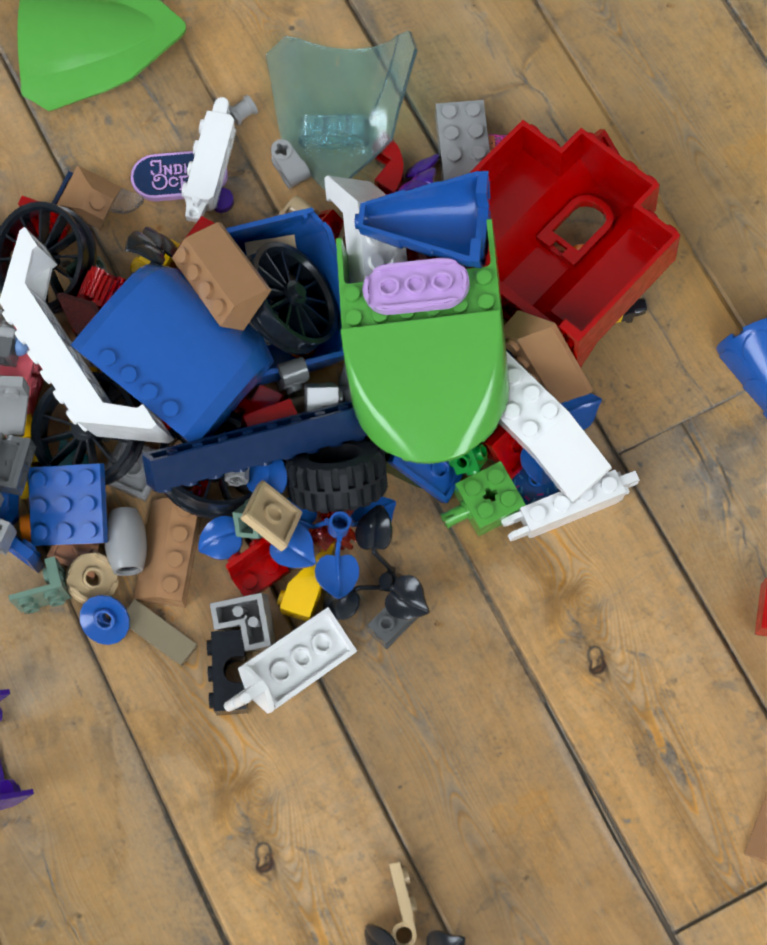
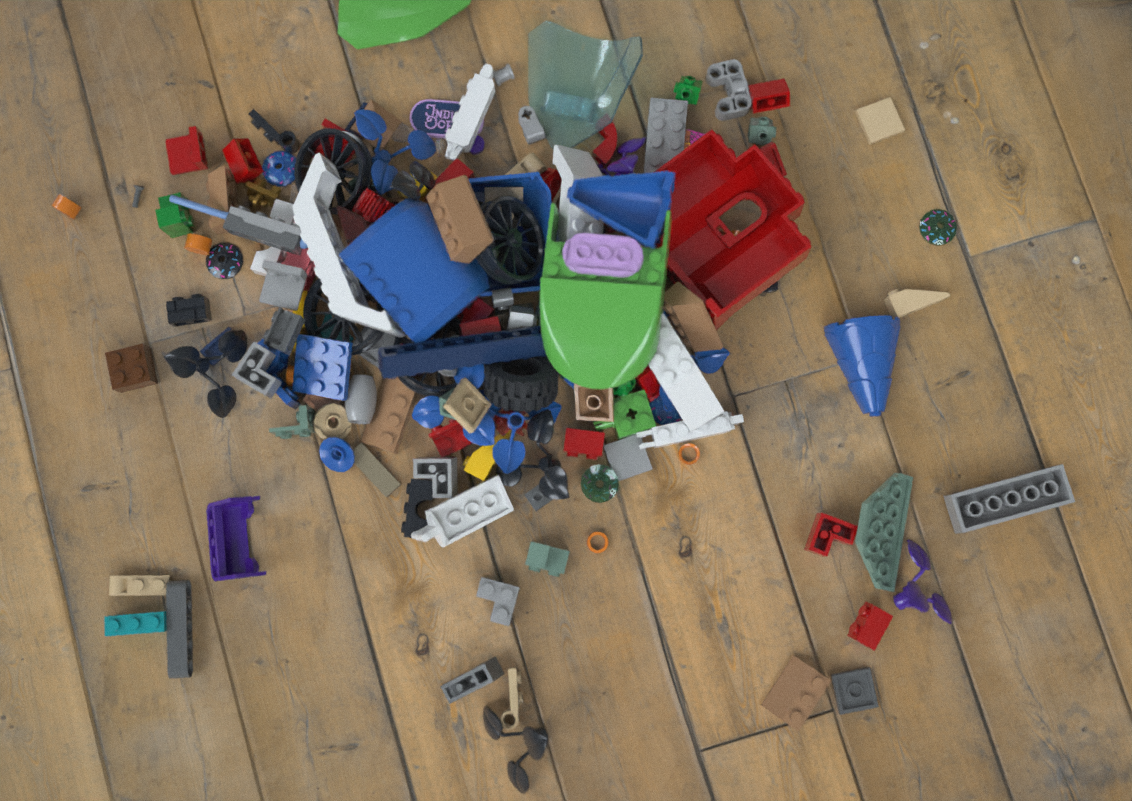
camera: 10 degrees right, 10 degrees up
(111, 252) = (371, 127): none -> blue plant
(178, 209) = (441, 147): none -> clear tile
(342, 891) = (472, 680): none -> dark grey slope
(363, 766) = (503, 595): none -> light grey brick
(413, 705) = (546, 558): none -> sand green brick
(434, 546) = (583, 443): none -> red brick
(438, 487) = (594, 404): none -> medium nougat slope
(465, 582) = (604, 474): none -> clear green dish
(477, 686) = (605, 538): none -> orange piece
(486, 83) = (688, 89): none -> green brick
(495, 556) = (627, 457): none -> light grey tile
(540, 76) = (736, 89): none -> light grey beam
(581, 527) = (696, 450): none -> orange piece
(584, 78) = (769, 95): none -> red brick
(584, 117) = (761, 131): none -> sand green brick
(729, 87) = (879, 121): none -> tan tile

